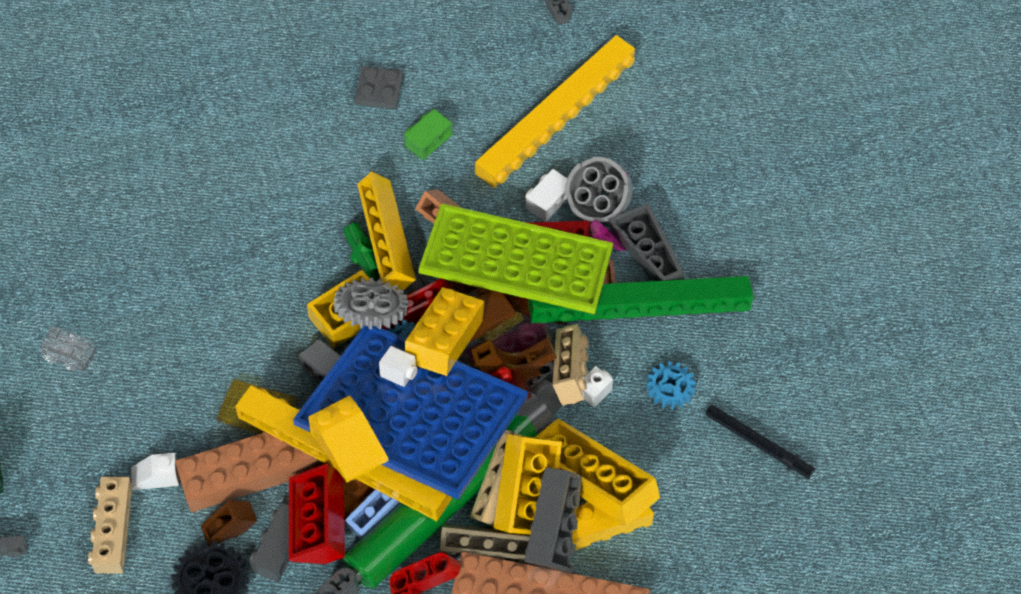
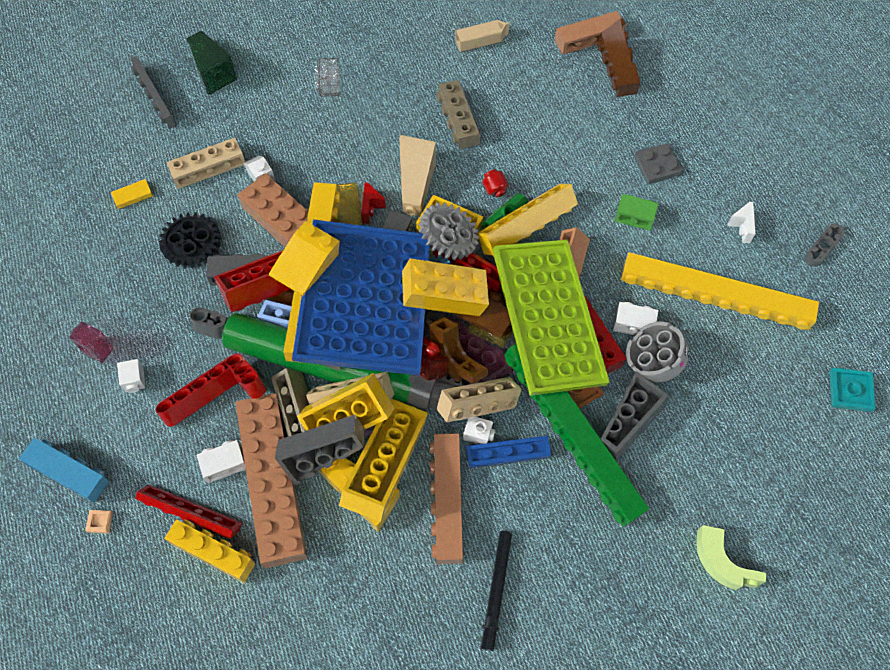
camera: 65 degrees right, 5 degrees up
(108, 171) = (481, 35): none -> tan piece
(174, 65) = (584, 33): none -> nougat brick
(204, 240) = (458, 114): none -> dark tan brick
(229, 521) = (240, 231): reddish brown slope -> none
(231, 55) = (619, 59): none -> reddish brown wedge
(259, 312) = (417, 169): none -> tan slope
(267, 374) = (371, 200): none -> red slope
(317, 244) = (495, 183): none -> red head
(398, 366) = (392, 267): white brick -> none
(493, 46) = (745, 220): none -> white slope
(602, 233) = (619, 377): dark pink plate -> none
(629, 371) = (508, 451): none -> blue plate
(651, 443) = (447, 499): none -> nougat brick
(672, 382) = (505, 485): dark azure gear -> none
(712, 59) = (852, 389): none -> teal plate
(819, 250) = (715, 561): none -> yellowish green arch

